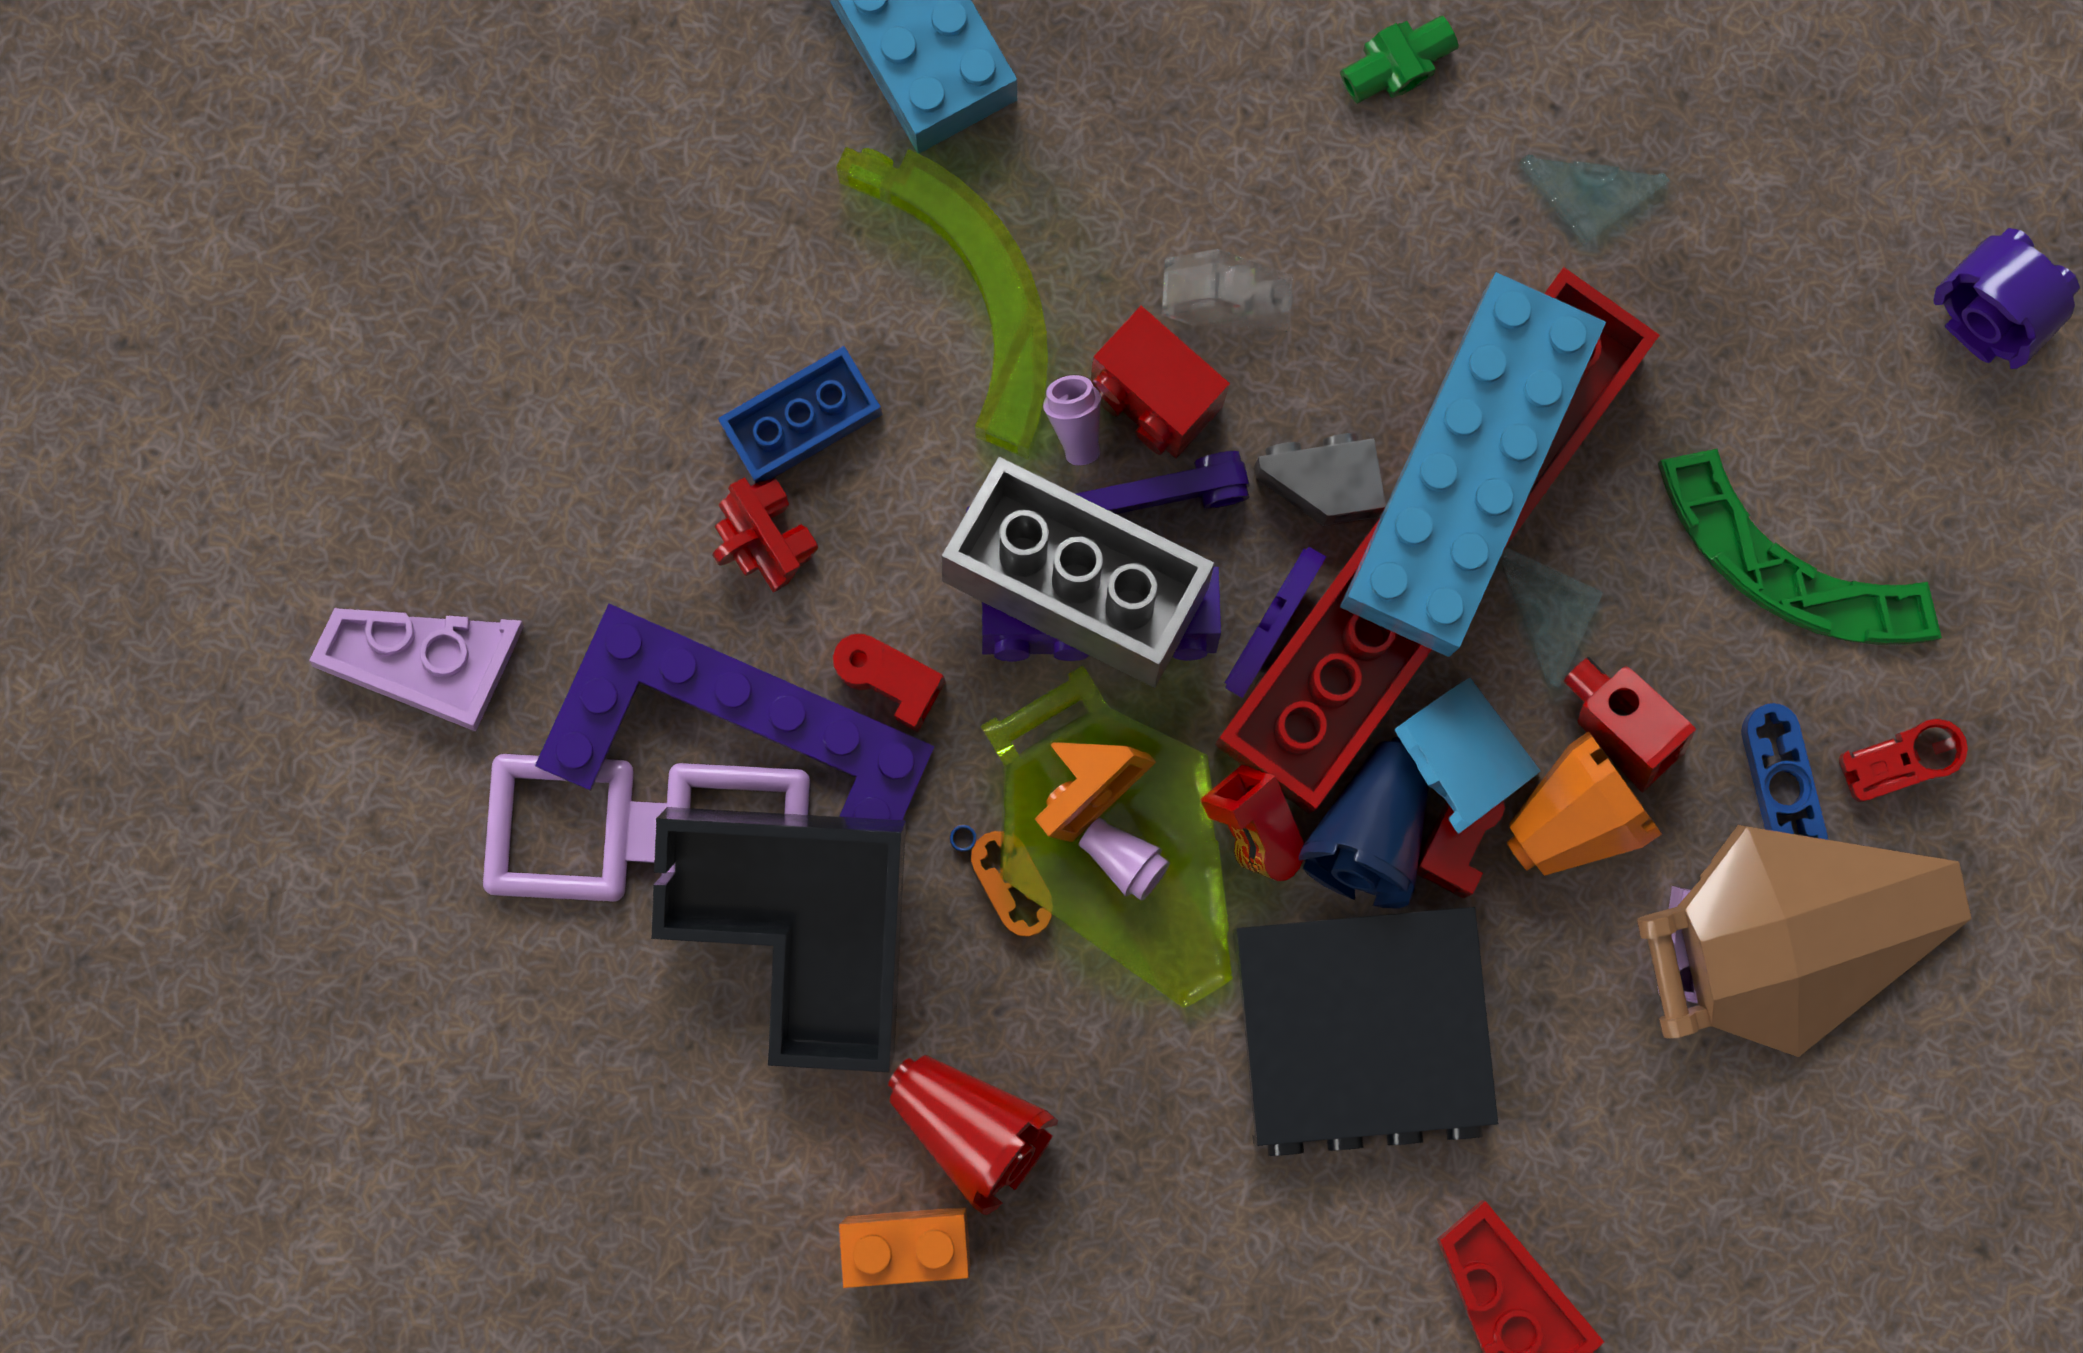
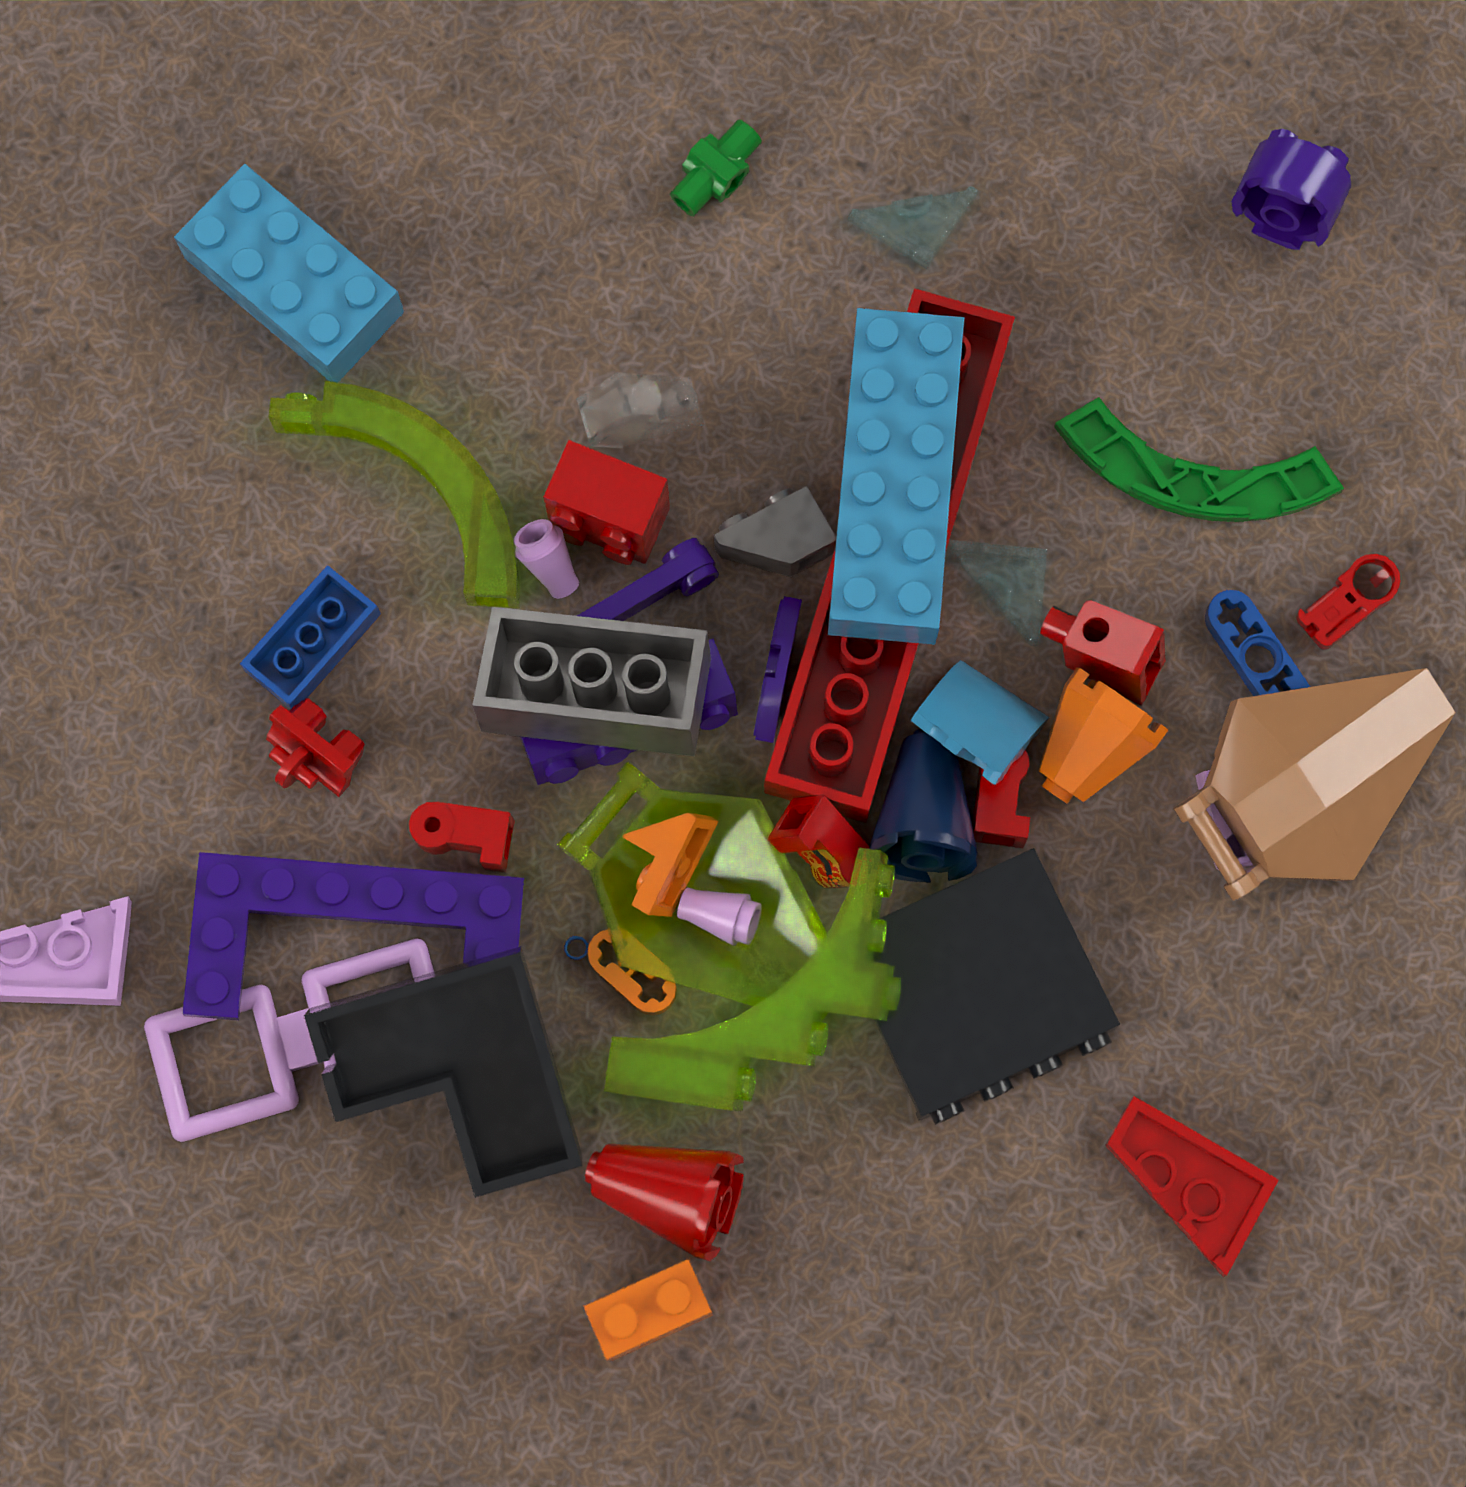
camera: 15 degrees left, 5 degrees down
(1222, 975) = (838, 978): none -> clear neon green arch

